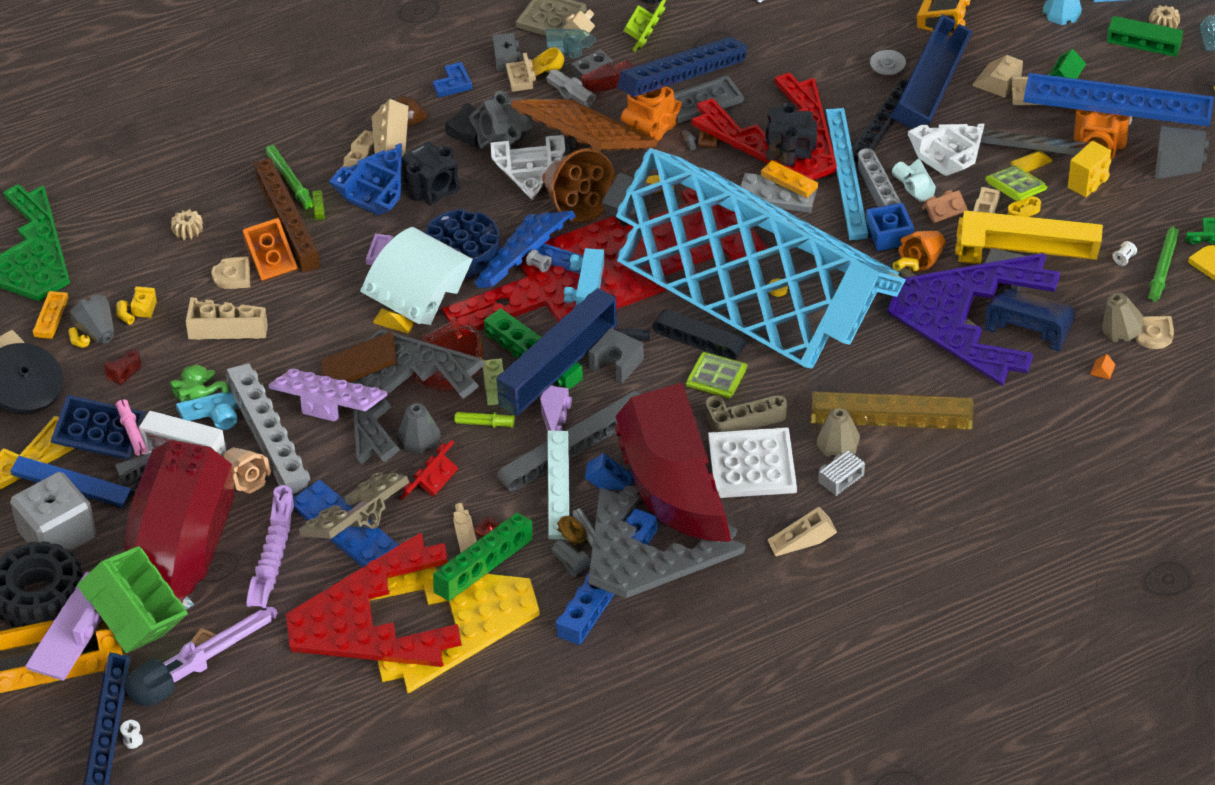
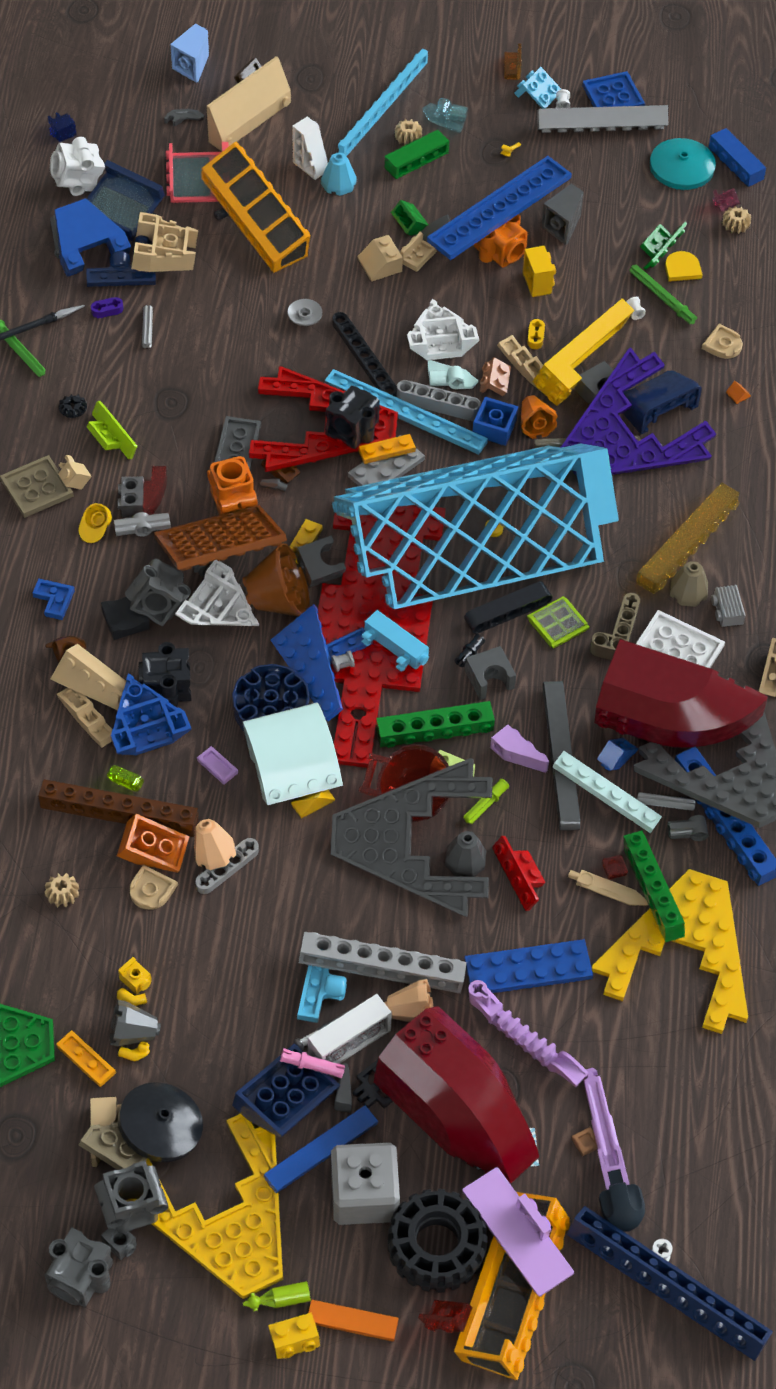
camera: 60 degrees left, 10 degrees up
(124, 367) = (205, 1029): clear red leg -> none
(132, 599) = (539, 1166): bright green container -> none
(192, 383) = (267, 985): bright green animal -> none
(225, 321) = (217, 925): tan wedge -> none
(267, 299) = (230, 868): none -> light grey beam
(293, 276) = (212, 845): none -> light nougat cone
(300, 192) = (90, 782): bright green axle -> none
(323, 394) = (376, 895): lavender bracket -> none
(341, 616) = (644, 1030): red wing -> none
(361, 359) = (356, 851): reddish brown tile -> none
(366, 500) = (521, 923): dark tan plate -> none
(505, 50) = (54, 541): dark grey brick -> none
(520, 74) = (93, 546): tan bracket -> none
(556, 352) = (477, 706): dark blue piece -> none
(569, 41) = (87, 495): clear light blue panel -> none
(572, 530) = (666, 810): pearl gold gear -> none
(681, 66) = (217, 435): dark blue brick -> none
(905, 262) = (542, 435): yellow arm -> none
(931, 73) = (350, 294): dark blue piece -> none
(1016, 183) = (509, 321): piece -> none
(1032, 142) = (481, 281): dark grey tile -> none
(1032, 161) = (487, 299): yellow slope -> none
(1121, 318) = (707, 352): dark tan cone -> none

